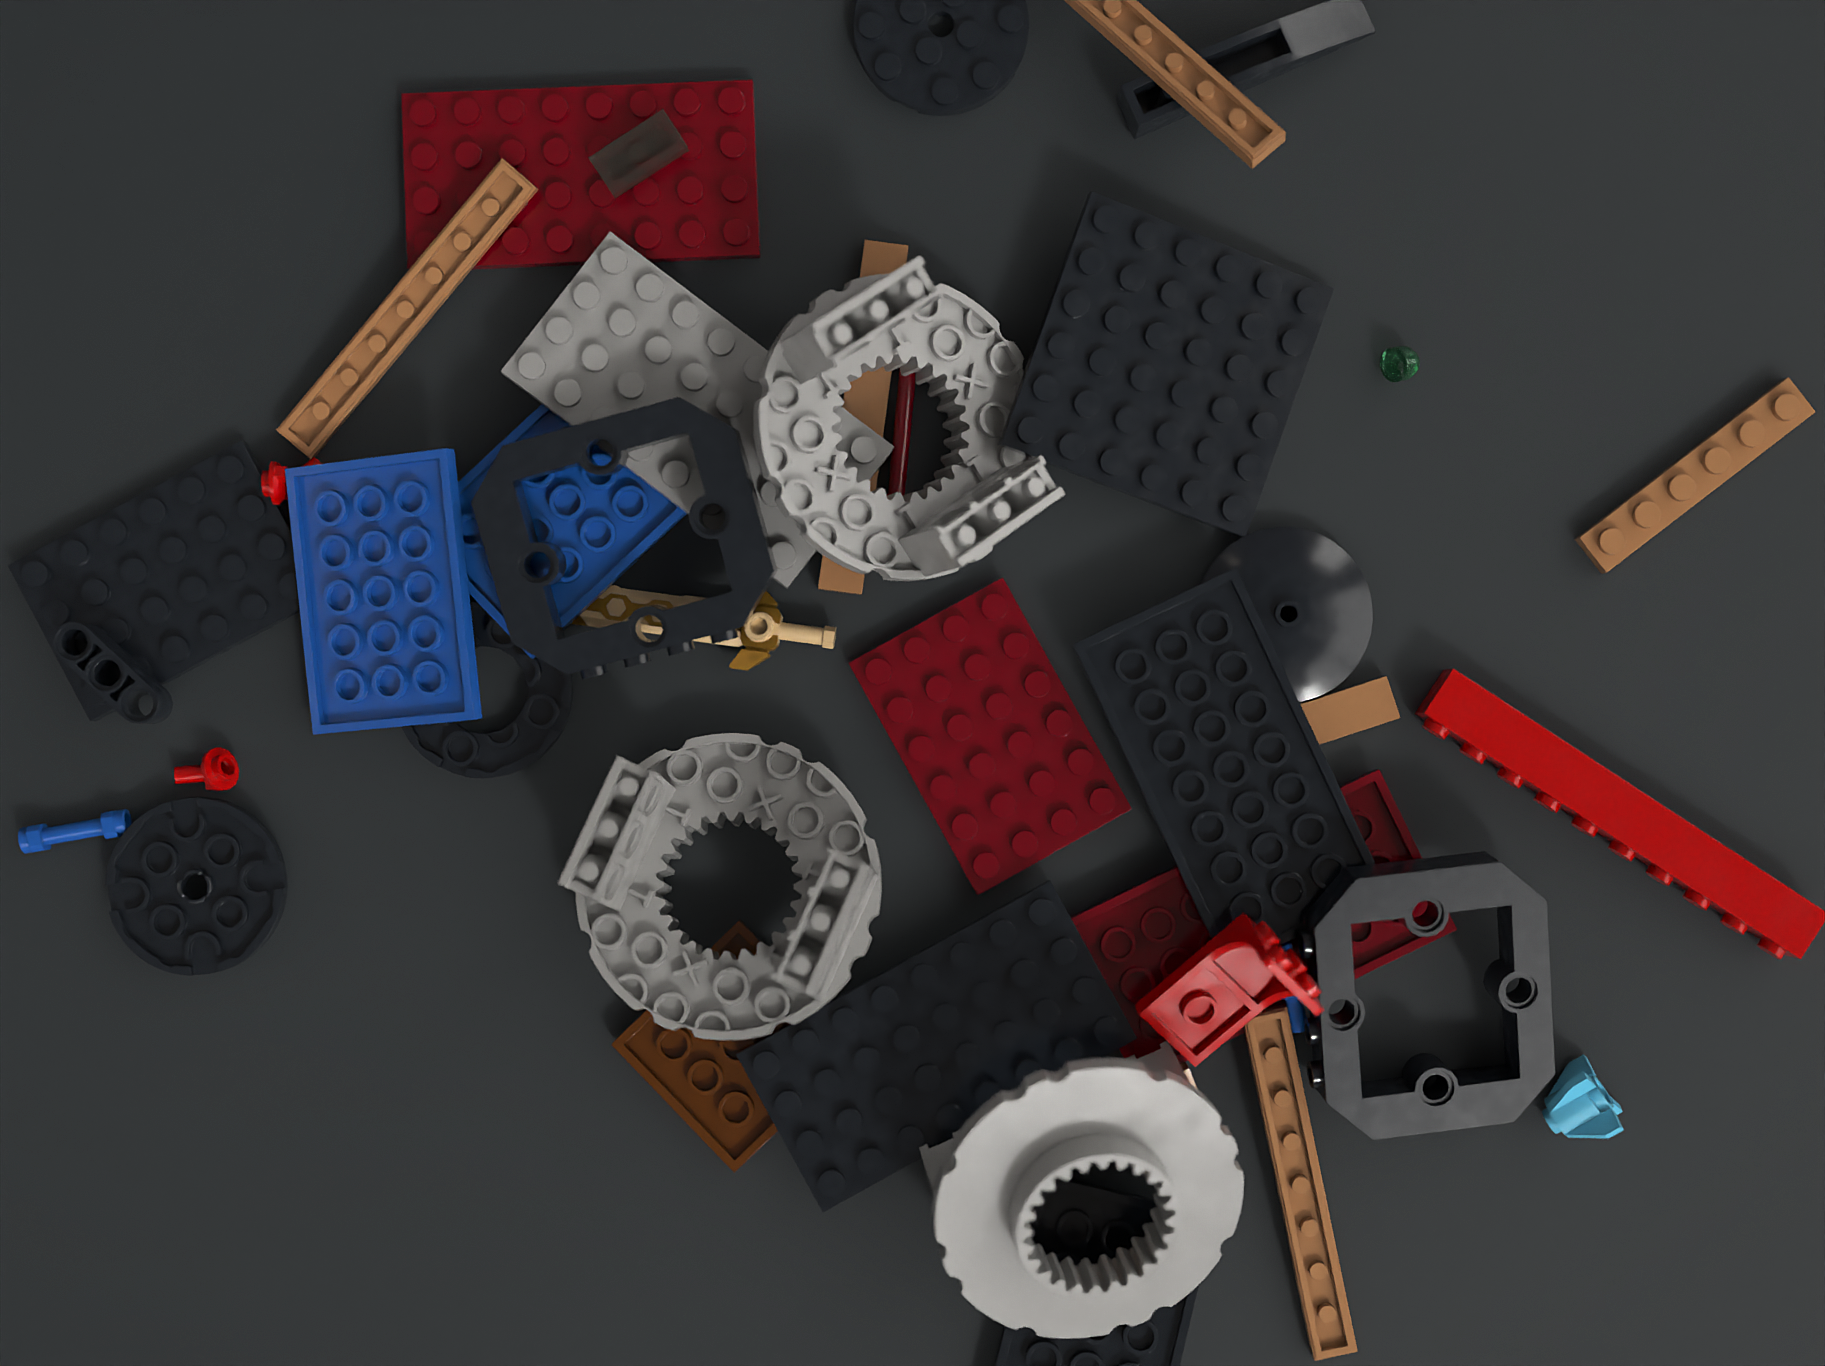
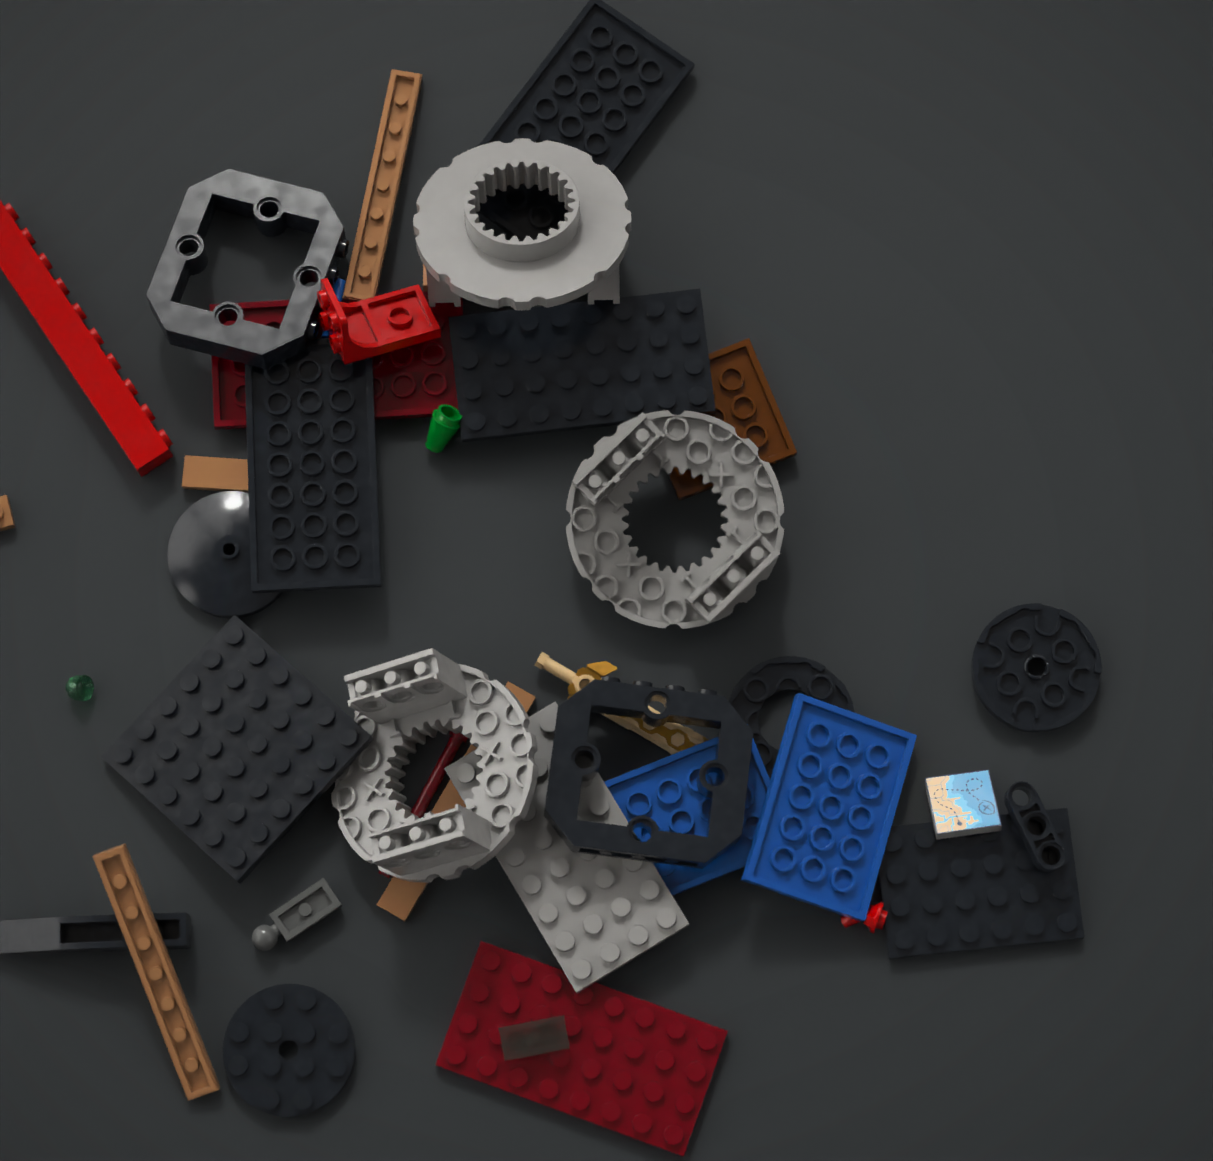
camera: 160 degrees left, 10 degrees down
(41, 837) = (1133, 743): blue bar -> none
(212, 771) = (996, 740): red plate -> none
(221, 669) = (962, 804): none -> tile
(407, 309) = (737, 1000): medium nougat tile -> none
(990, 736) = (462, 554): dark red plate -> none
(1001, 192) = (297, 915): none -> dark grey plate
(1082, 888) = (443, 426): none -> green cone
(1581, 1104) = (179, 162): medium azure brick -> none

